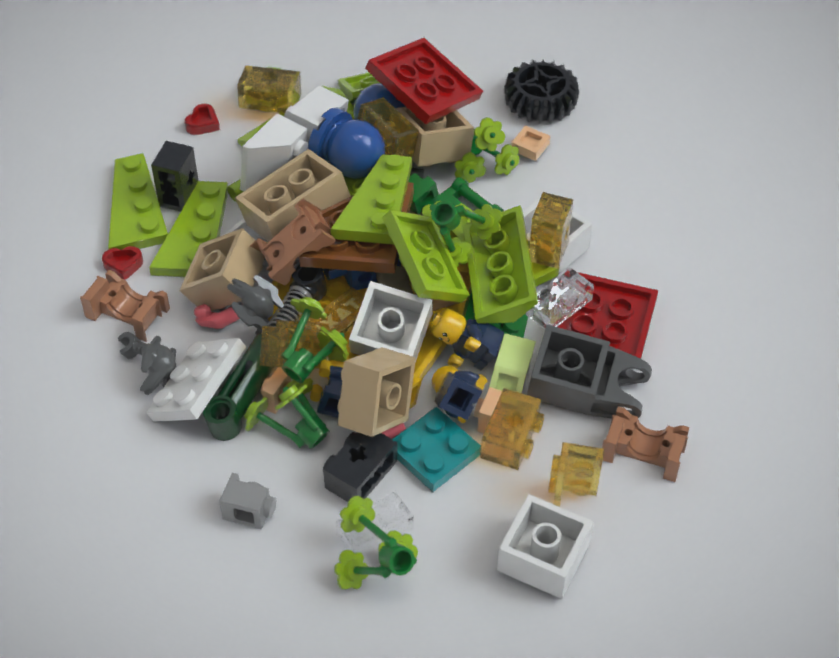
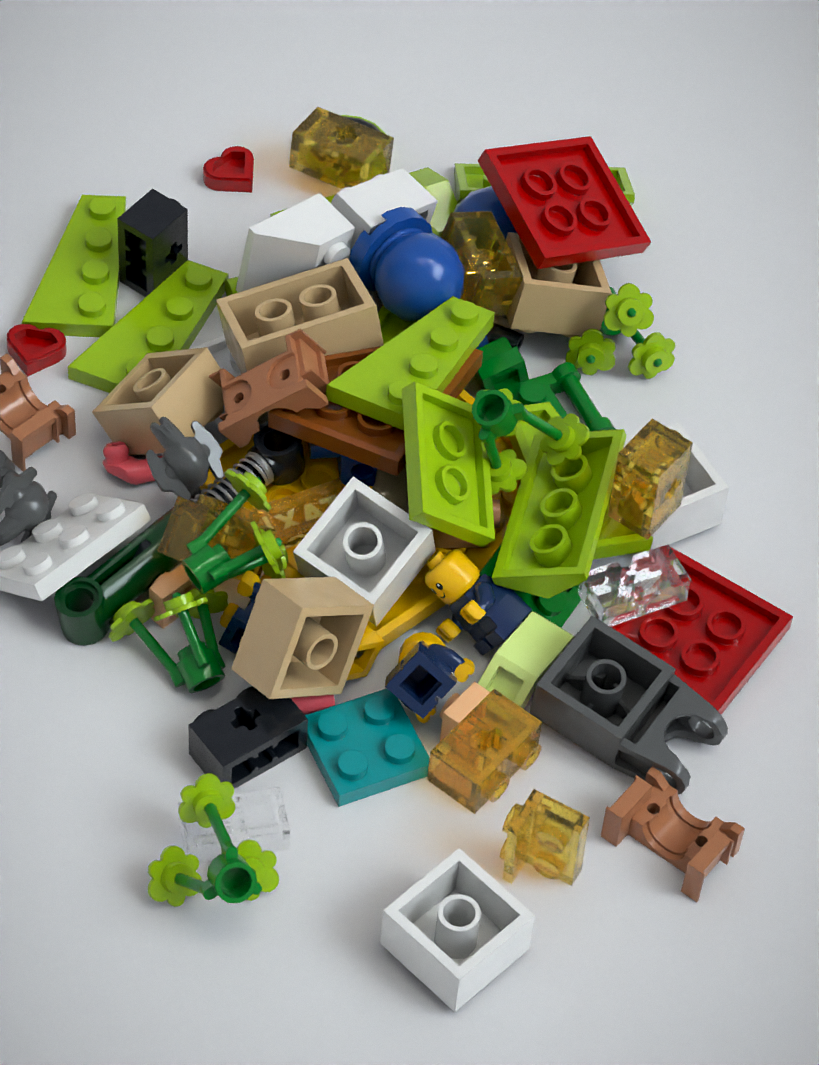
camera: 15 degrees right, 0 degrees up
(246, 502) = (67, 738): light grey brick -> none
(531, 142) = (701, 340): light nougat plate -> none
(541, 91) = (752, 266): black gear -> none

